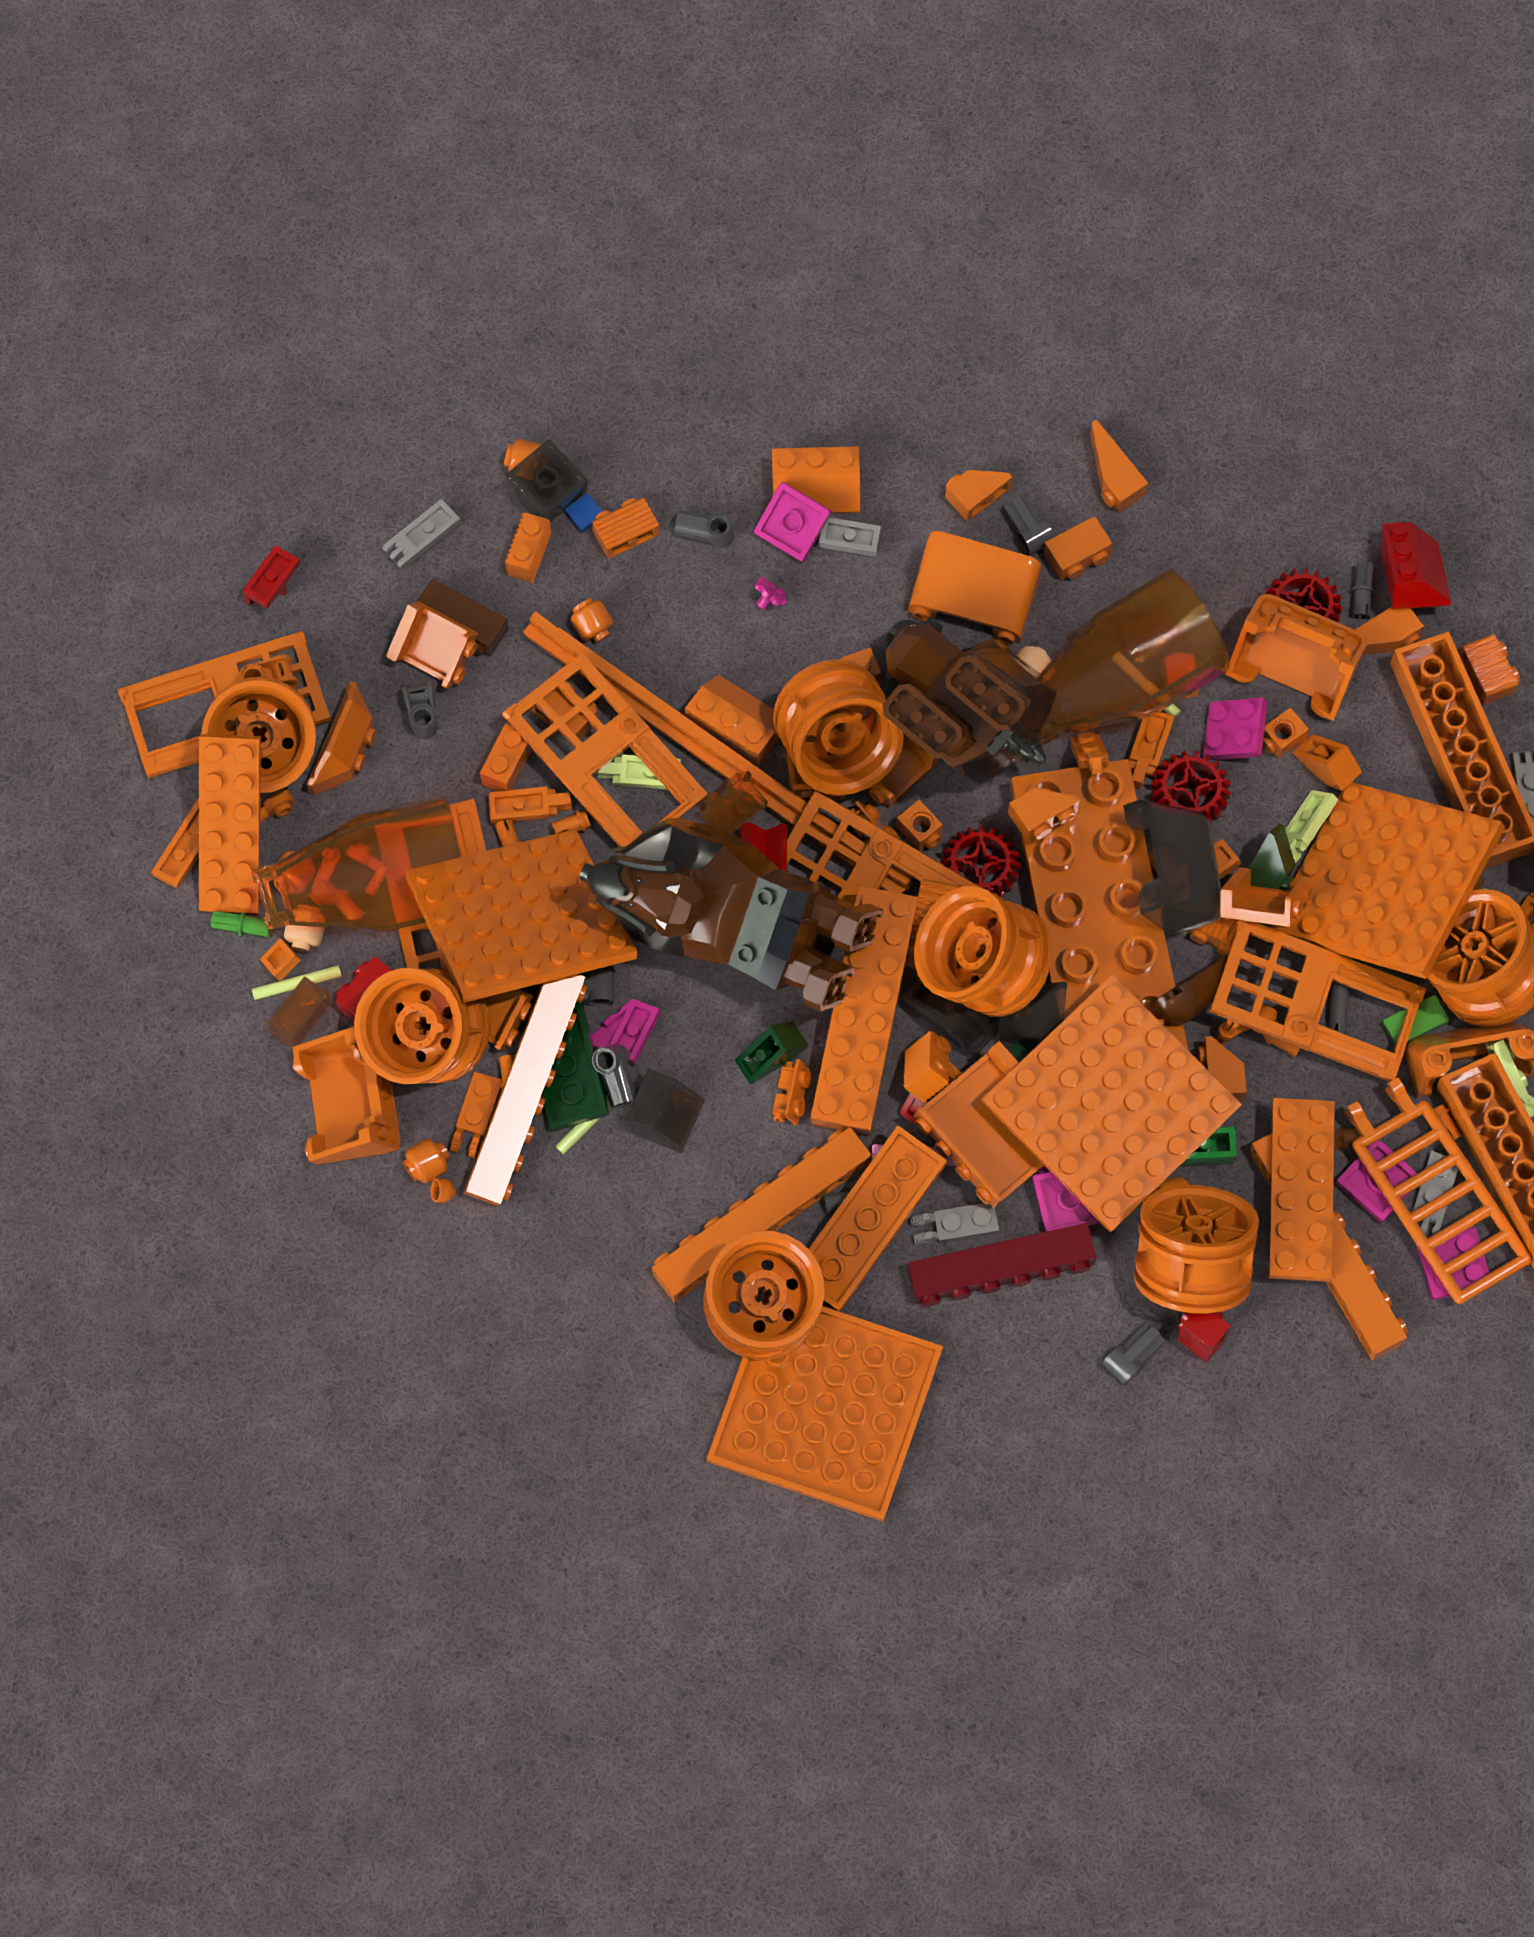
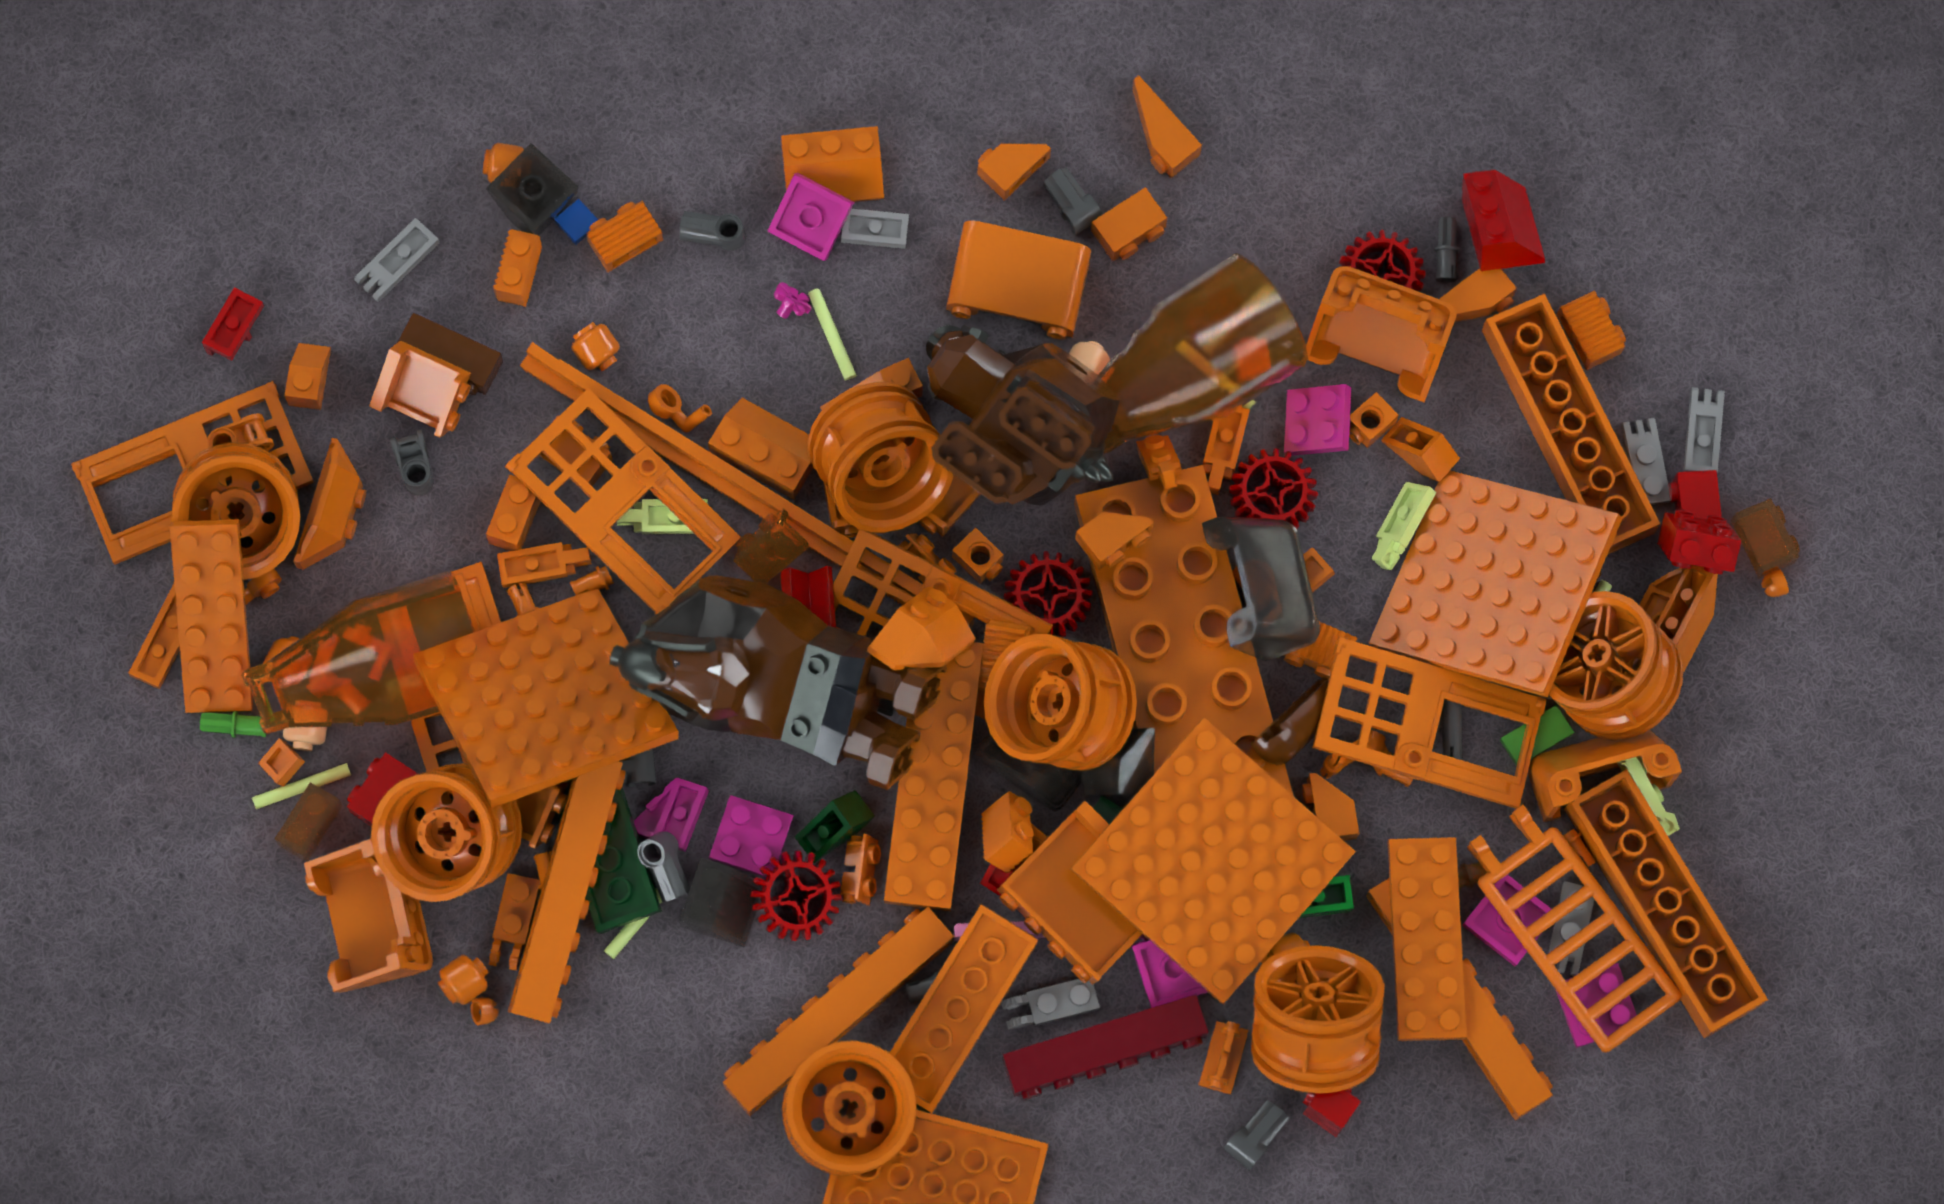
camera: 10 degrees left, 5 degrees up
(333, 629) = (307, 376): none -> orange slope
(651, 674) = (667, 404): none -> orange plate
(696, 1056) = (750, 835): none -> dark pink plate
(729, 1095) = (799, 910): none -> red gear
(803, 624) = (832, 334): none -> yellowish green bar
(863, 878) = (923, 633): none -> orange wedge
(1109, 1282) = (1223, 1057): none -> orange hinge
(1263, 904) = (1362, 619): orange panel -> none
(1273, 861) = (1369, 573): dark green slope -> none

